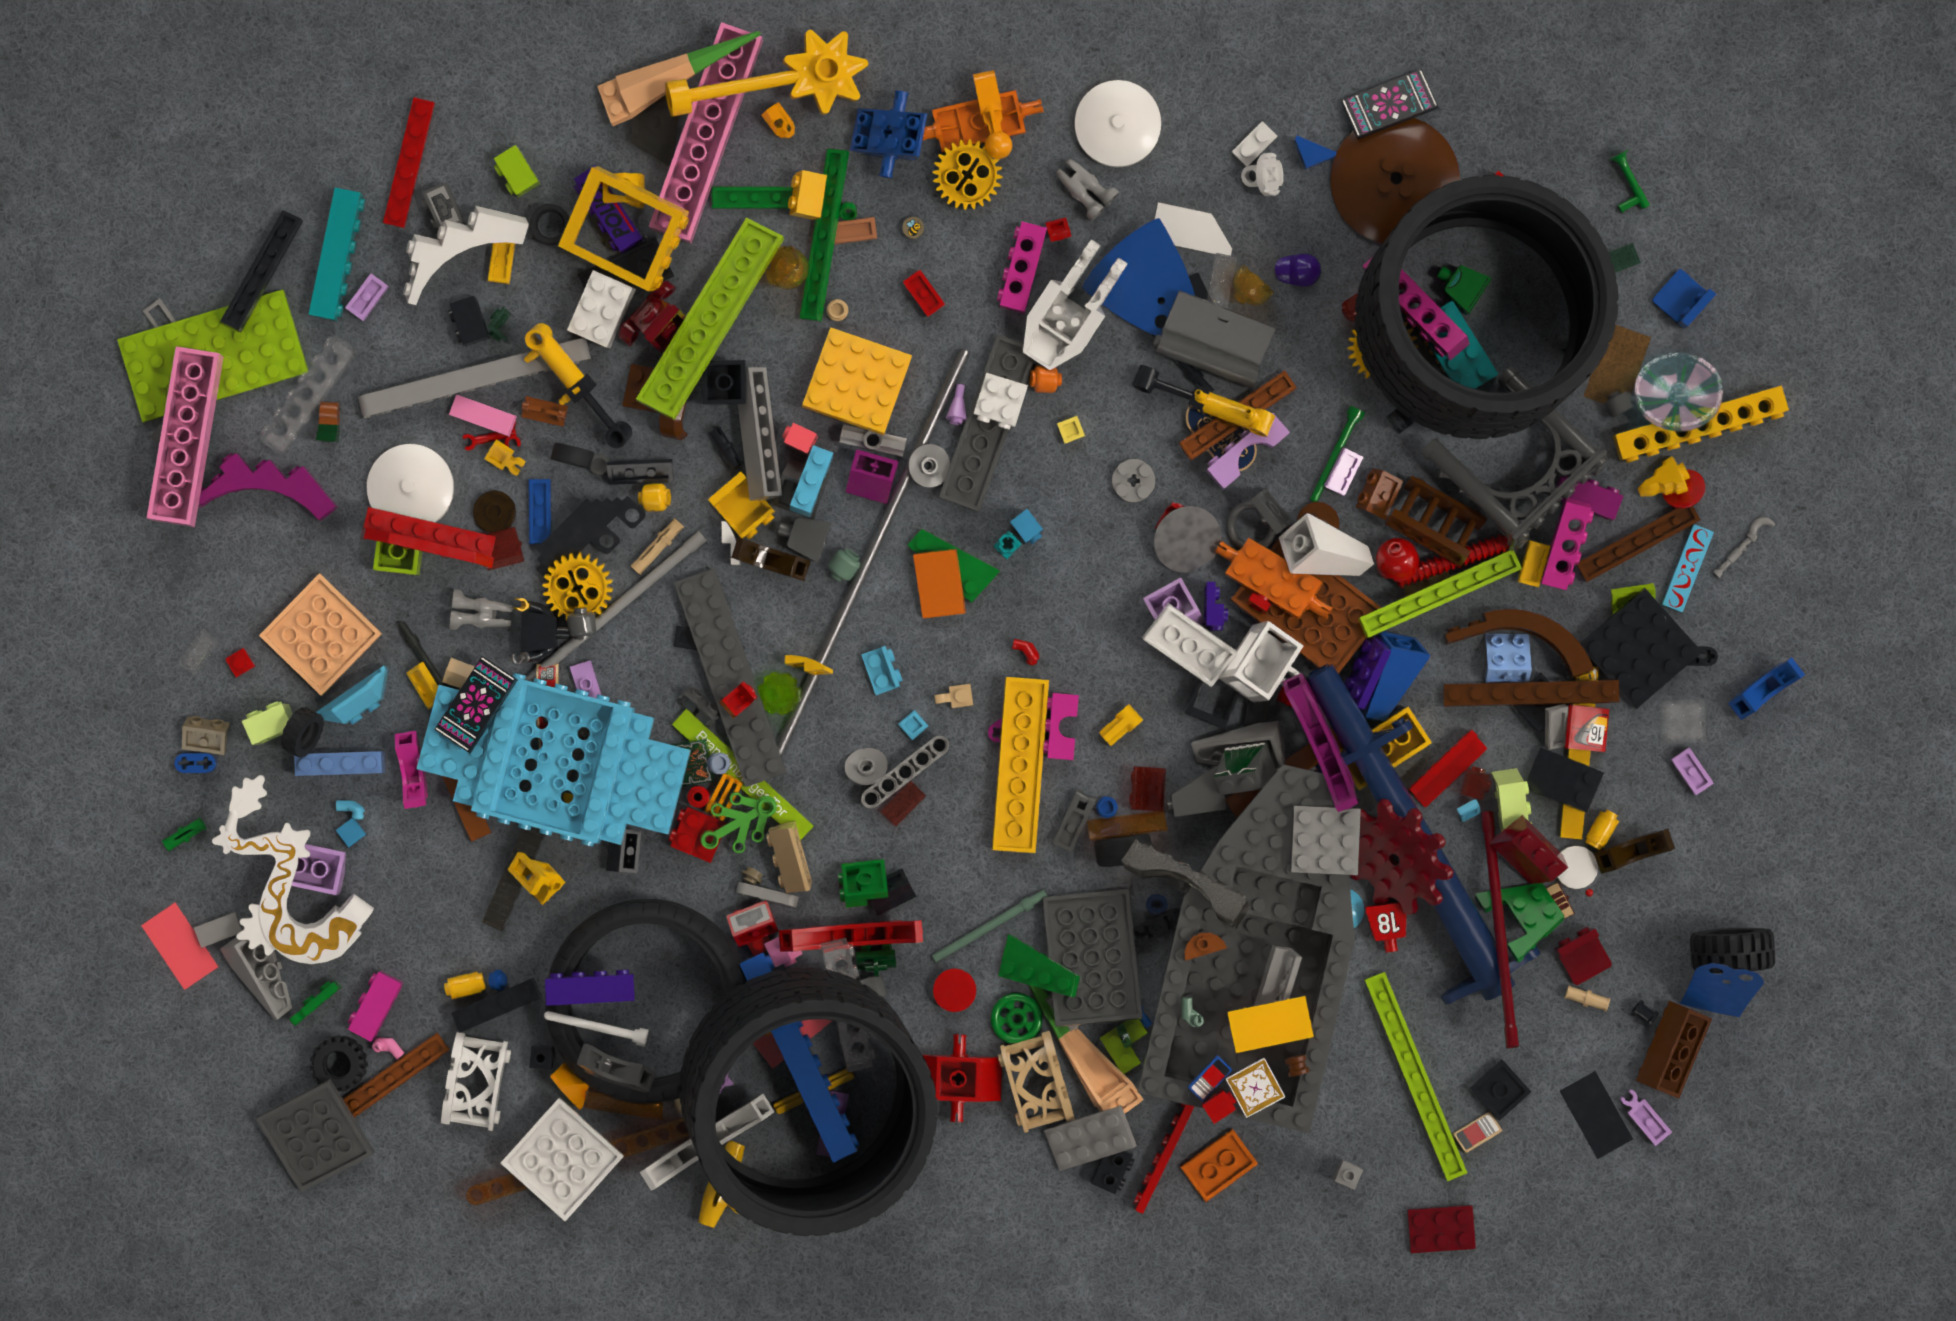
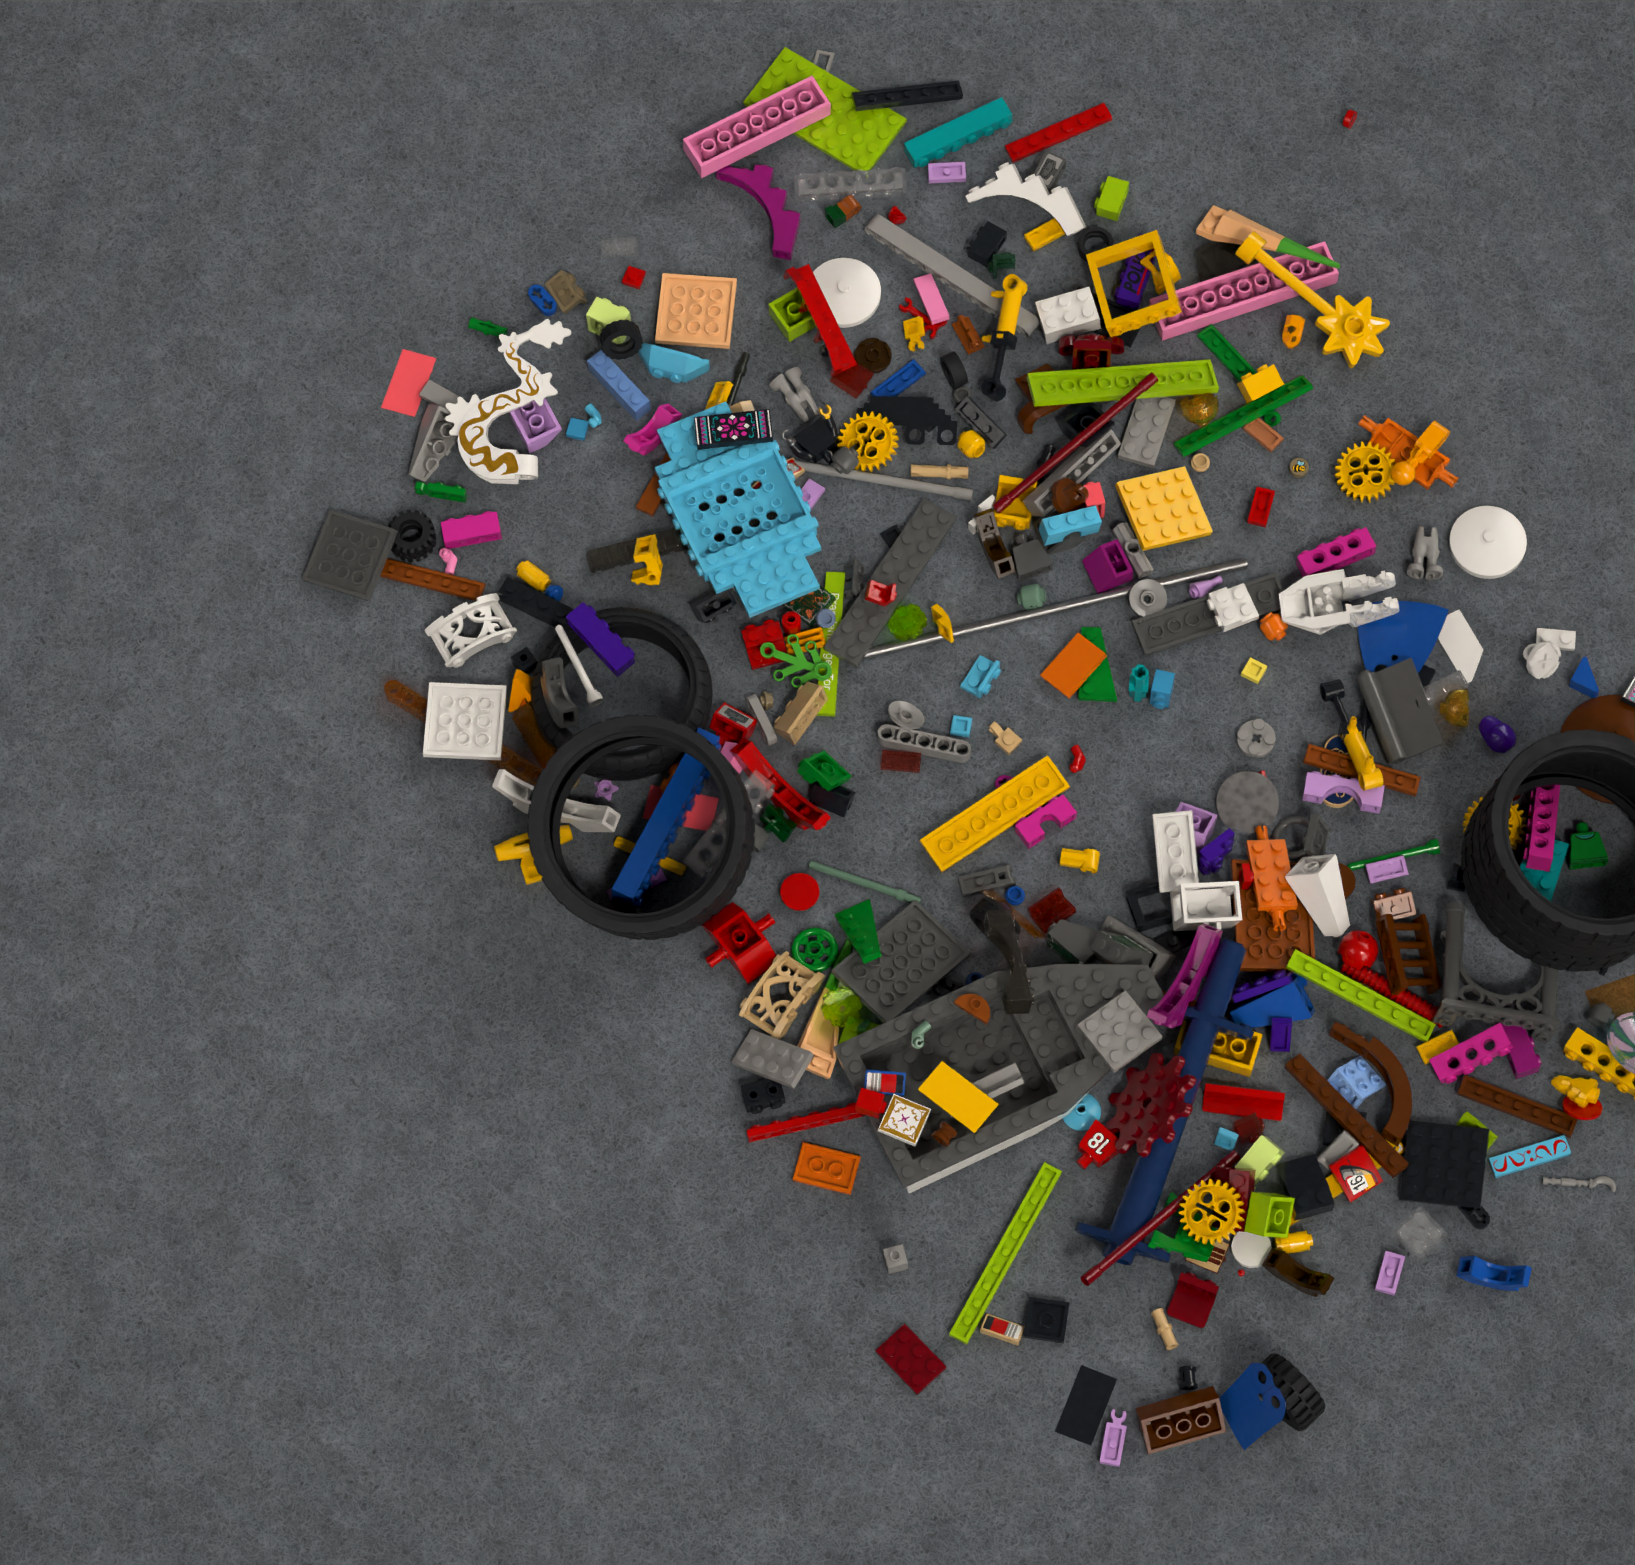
camera: 55 degrees right, 20 degrees down
(373, 378) = (896, 216): none -> red tile
(735, 309) = (1142, 386): none -> dark red piece
(769, 332) = (1146, 430): none -> light grey plate
(783, 461) = (1068, 495): none -> reddish brown tile
(889, 133) = (1347, 401): blue slope -> none
(1058, 229) = (1381, 557): red plate -> none
(1092, 1043) = (841, 1007): none -> clear neon green plant
(1418, 689) = (1280, 1034): none -> dark purple tile
(1526, 867) = (1220, 1196): none -> yellow gear
(1570, 836) = (1269, 1214): none -> lime brick

